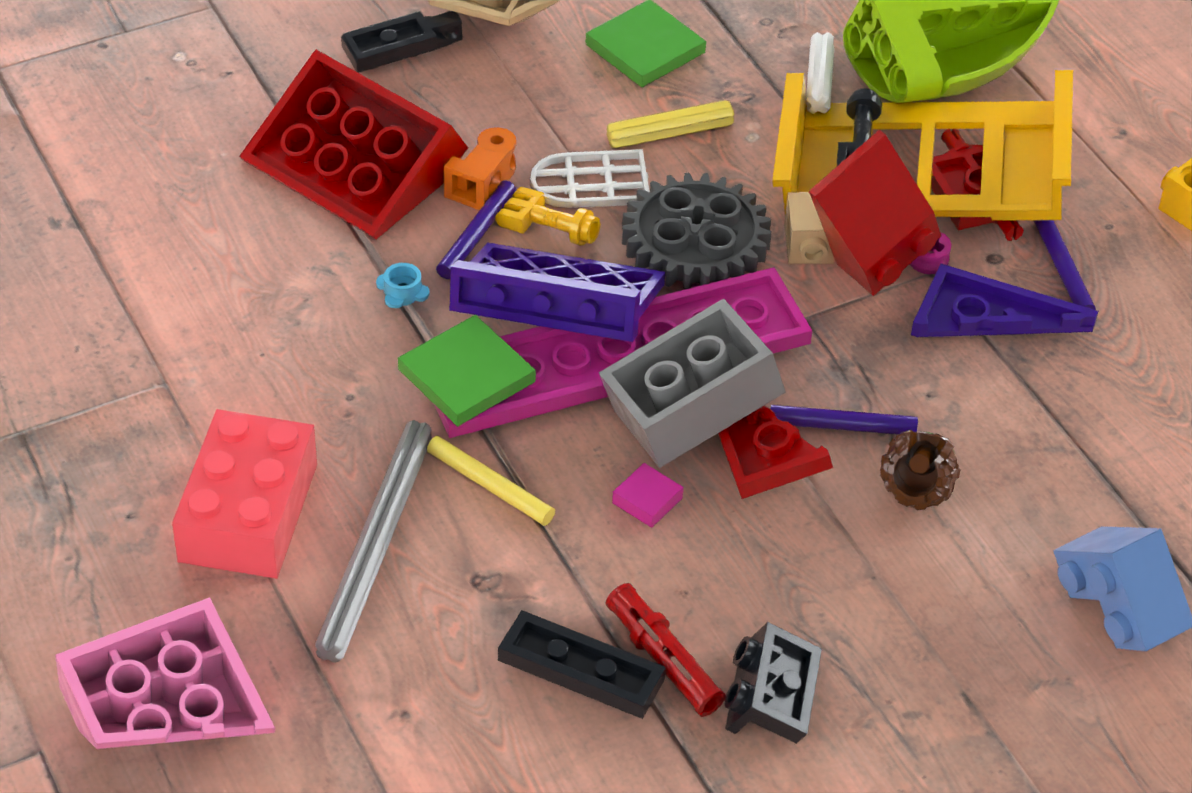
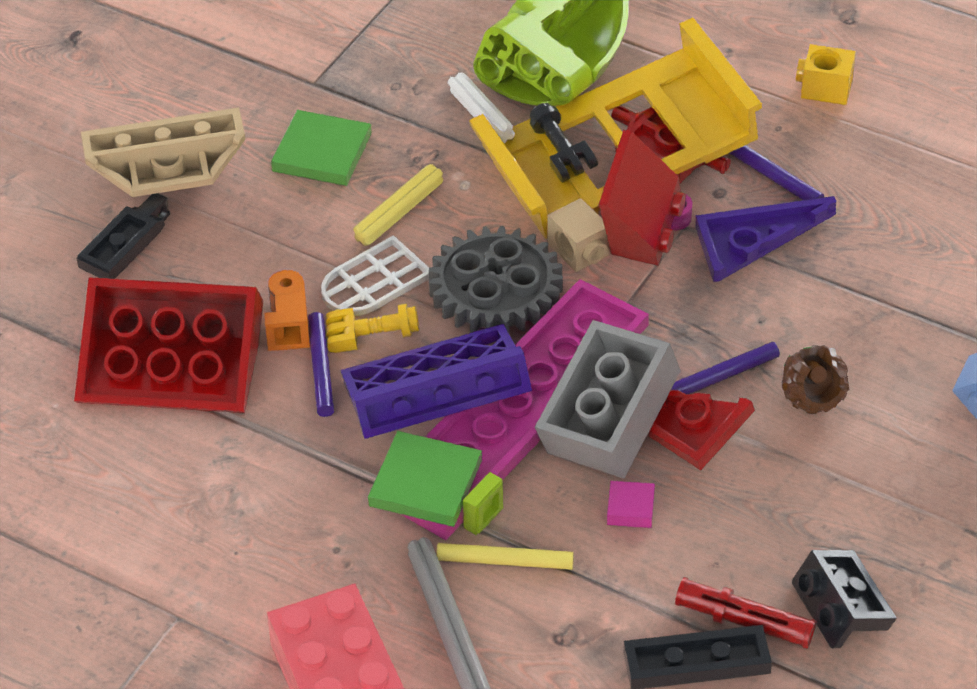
camera: 30 degrees left, 0 degrees up
(402, 285) = (305, 438): medium azure plate -> none
(505, 421) = (483, 503): none -> lime tile

